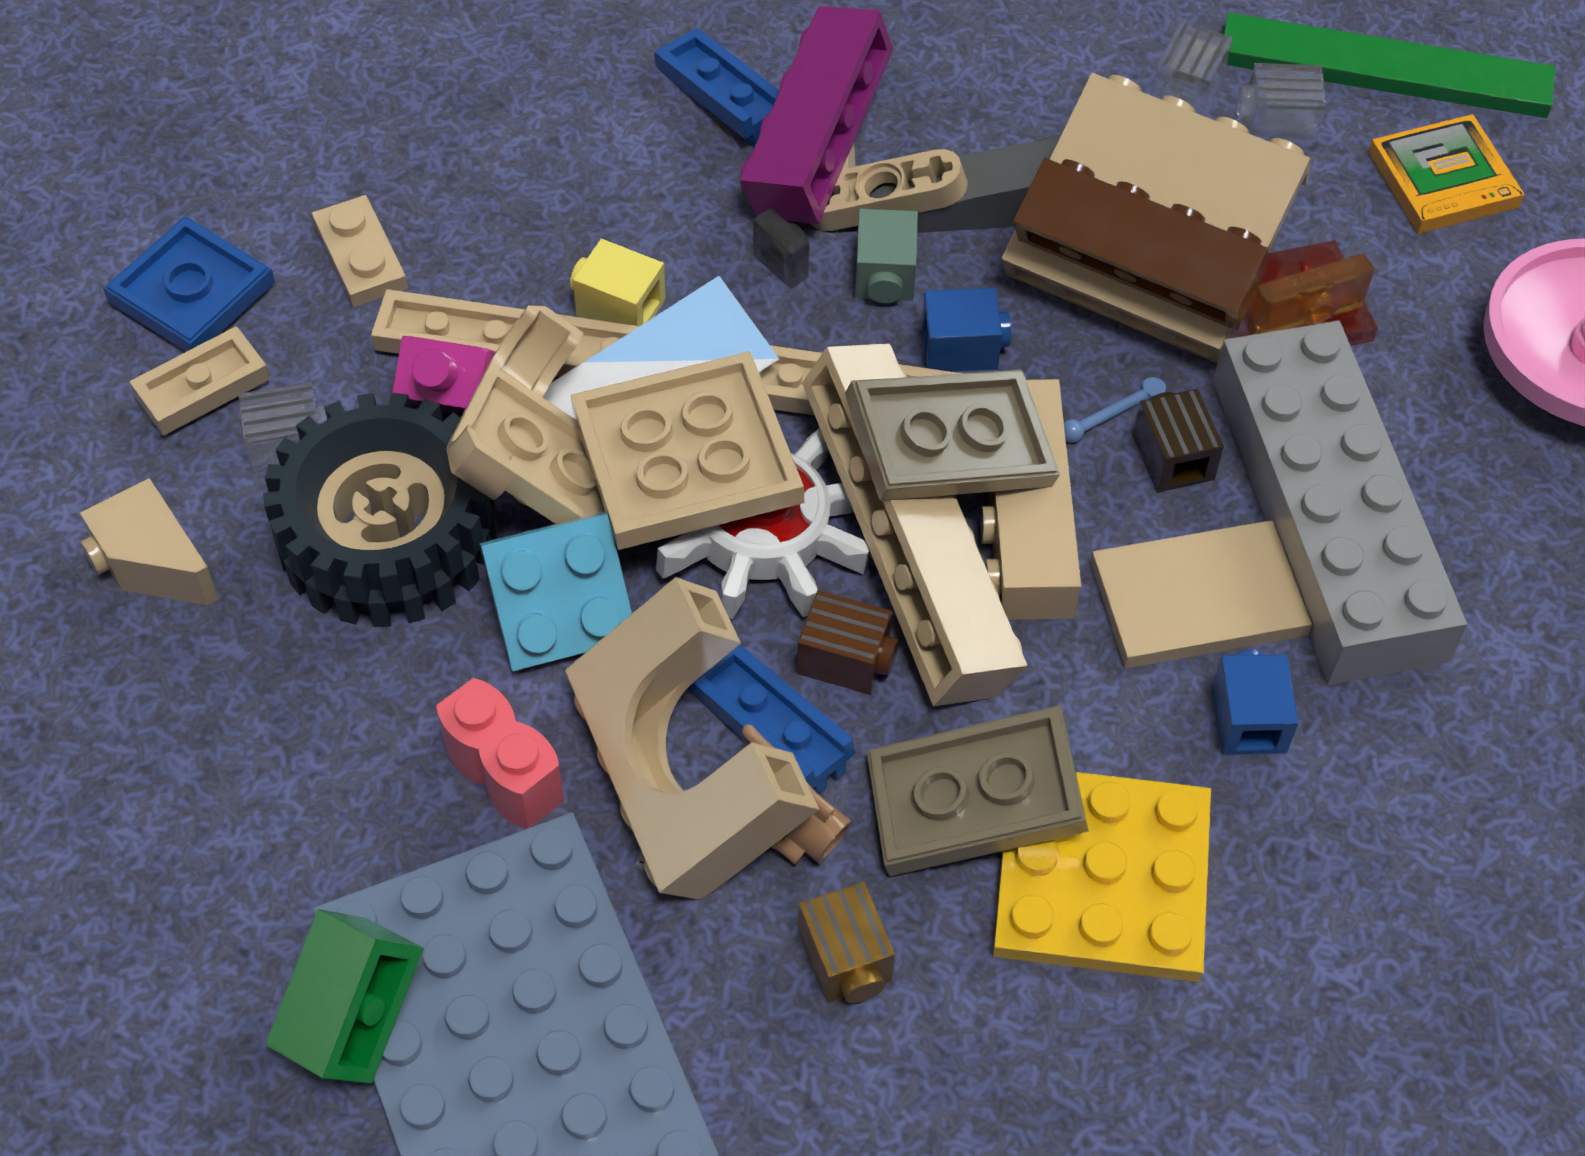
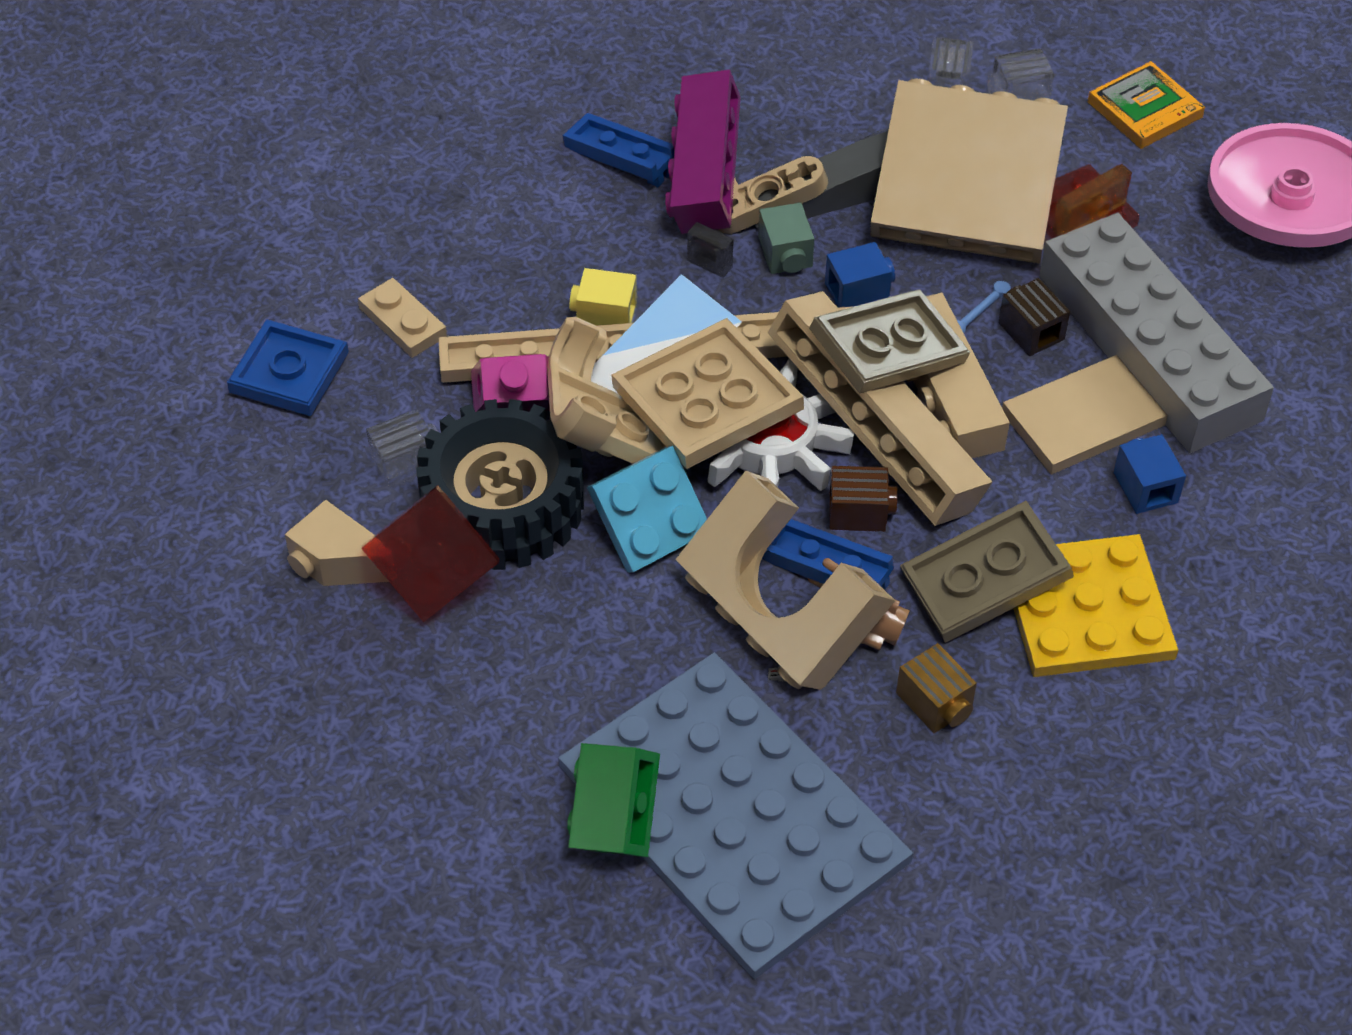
camera: 15 degrees left, 5 degrees down
(199, 380) = (324, 430): tan plate -> none
(246, 585) = (430, 553): none -> clear red plate
(500, 753) = (649, 624): coral brick -> none
(1142, 242) = (970, 187): reddish brown brick -> none
(1395, 65) = (1086, 39): green tile -> none

